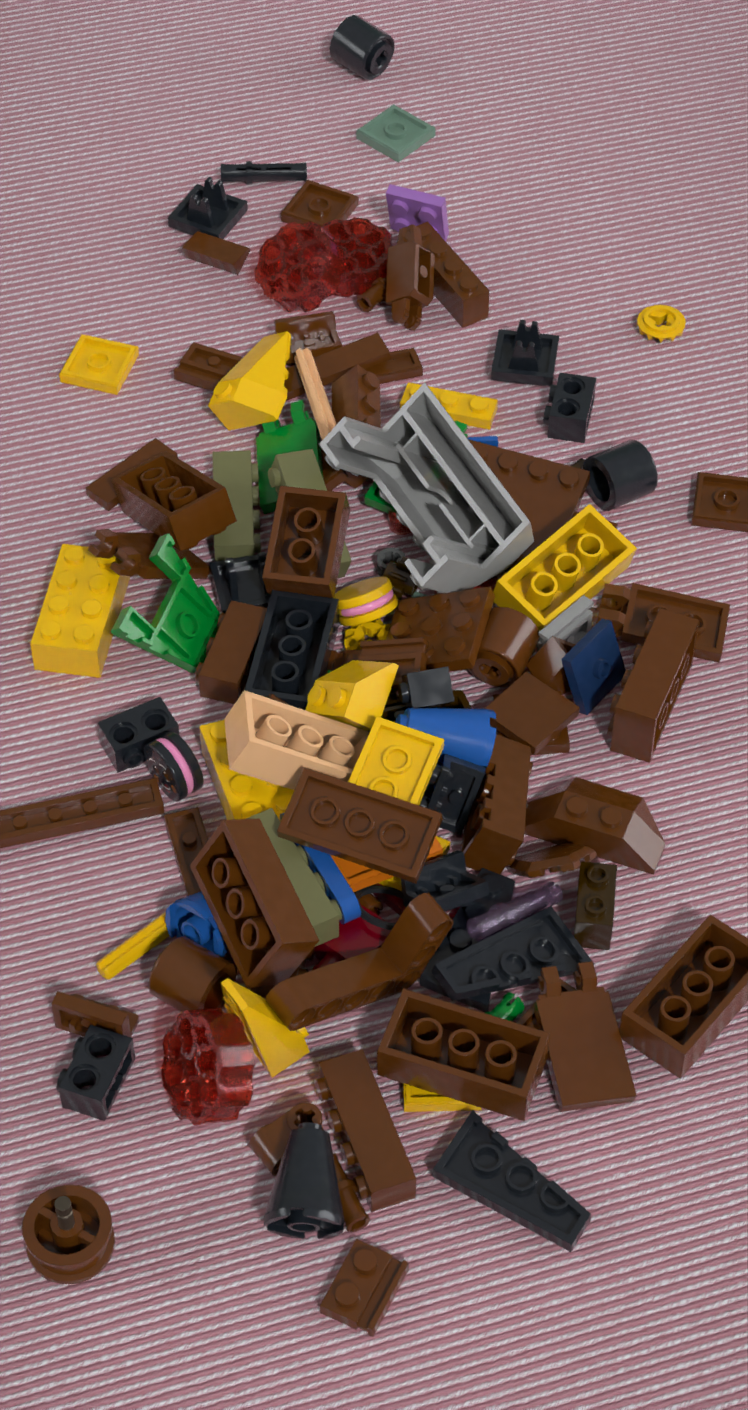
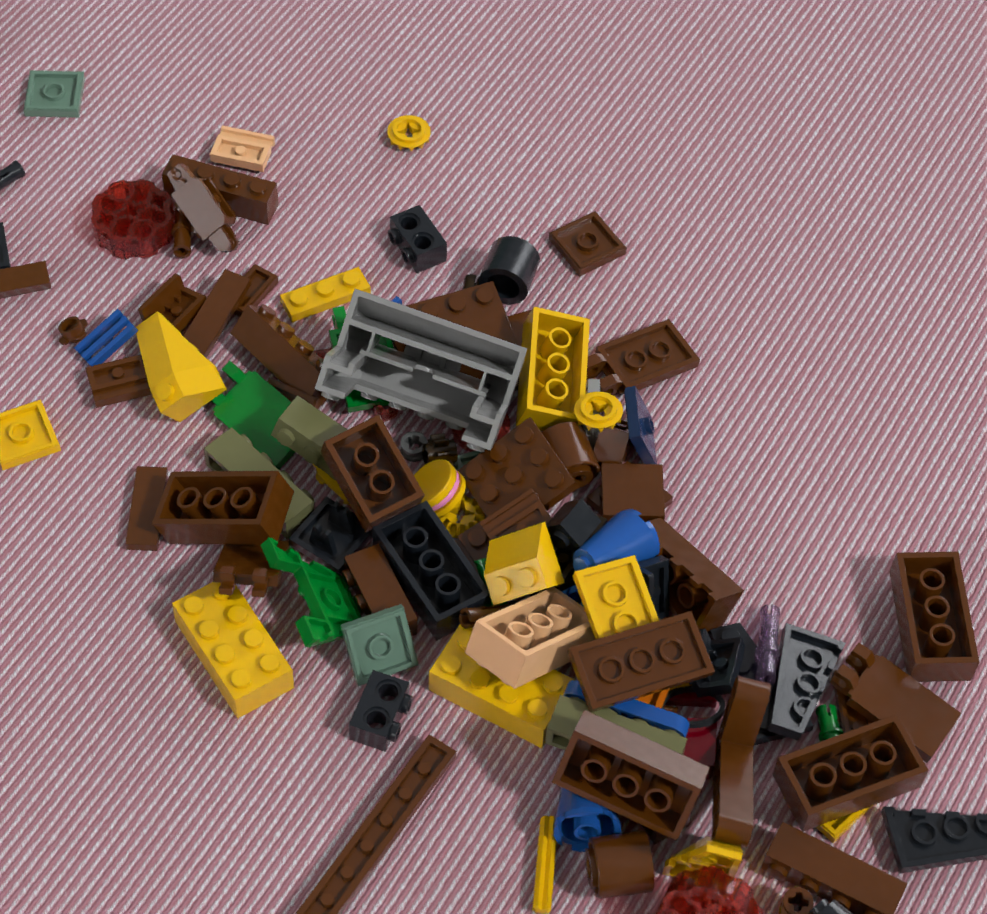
camera: 45 degrees left, 5 degrees up
(173, 766) = (437, 715): black head -> none
(187, 839) = (510, 772): reddish brown tile -> none
(189, 682) = (379, 643): none -> sand green tile
(215, 311) = (72, 330): none -> reddish brown plate
(233, 331) = (104, 336): none -> blue tile
(299, 267) = (123, 236): clear red connector -> none
(315, 391) = (242, 353): light nougat axle -> none
(319, 205) = (60, 193): reddish brown tile -> none
(415, 208) = (153, 151): medium lavender plate -> none
(500, 255) = (242, 148): none -> light nougat plate
(525, 356) = (343, 219): black plate -> none
(556, 858) = (763, 587): reddish brown tile -> none
(571, 621) = (600, 402): none -> yellow gear
(595, 905) = (809, 600): dark brown brick -> none
(600, 818) = (749, 538): reddish brown wedge -> none
(652, 685) = (692, 413): reddish brown brick -> none

